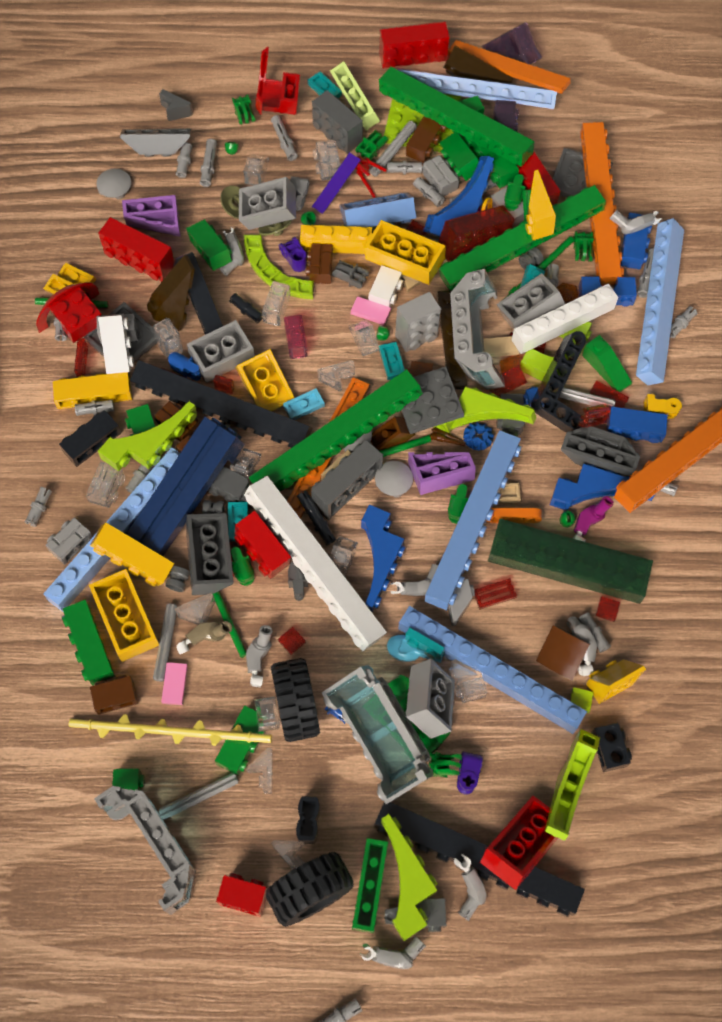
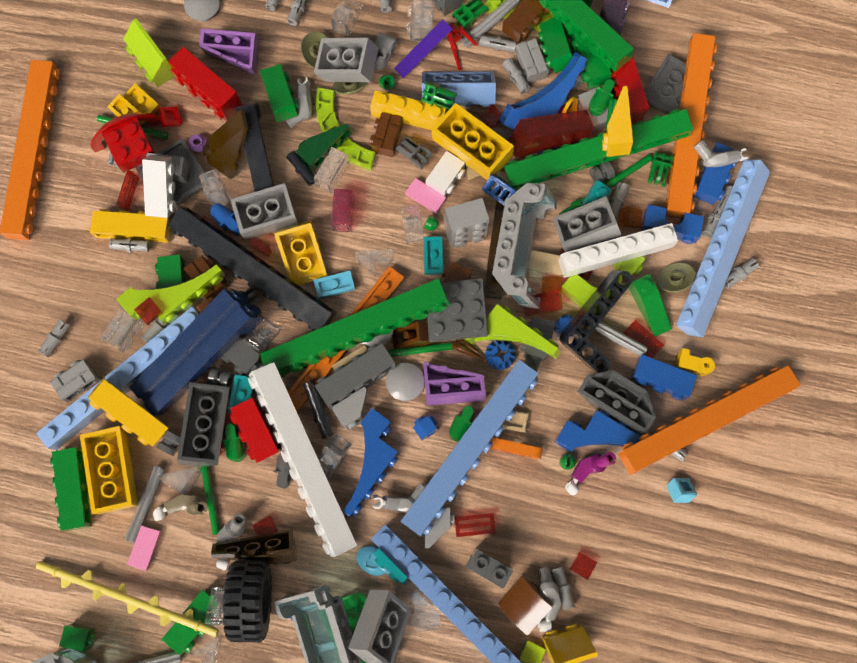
camera: 15 degrees right, 10 degrees up
(73, 233) = (147, 54): none -> lime slope
(89, 438) = (118, 277): black brick -> none
(107, 285) = (169, 116): none -> red plate
(113, 694) = (83, 547): reddish brown brick -> none
(133, 454) = (148, 311): none -> clear red tile
(139, 309) = (197, 148): none -> medium lavender plate
(257, 286) = (317, 147): none -> dark green slope
(294, 254) = (362, 116): dark purple piece -> none
(313, 649) = (270, 547): none -> dark brown wedge
(347, 512) = (351, 409): none -> light grey slope
(361, 217) = (440, 96): none -> green arm
(424, 513) = (425, 427): none -> blue plate
(430, 284) = (487, 188): none -> blue slope
(519, 624) = (489, 568): none -> dark grey panel
(570, 561) = (558, 510): clear green brick -> none
(595, 412) = (622, 361): clear red tile -> none
(624, 335) = (676, 277): none -> olive dish
(681, 521) = (681, 490): none -> medium azure slope

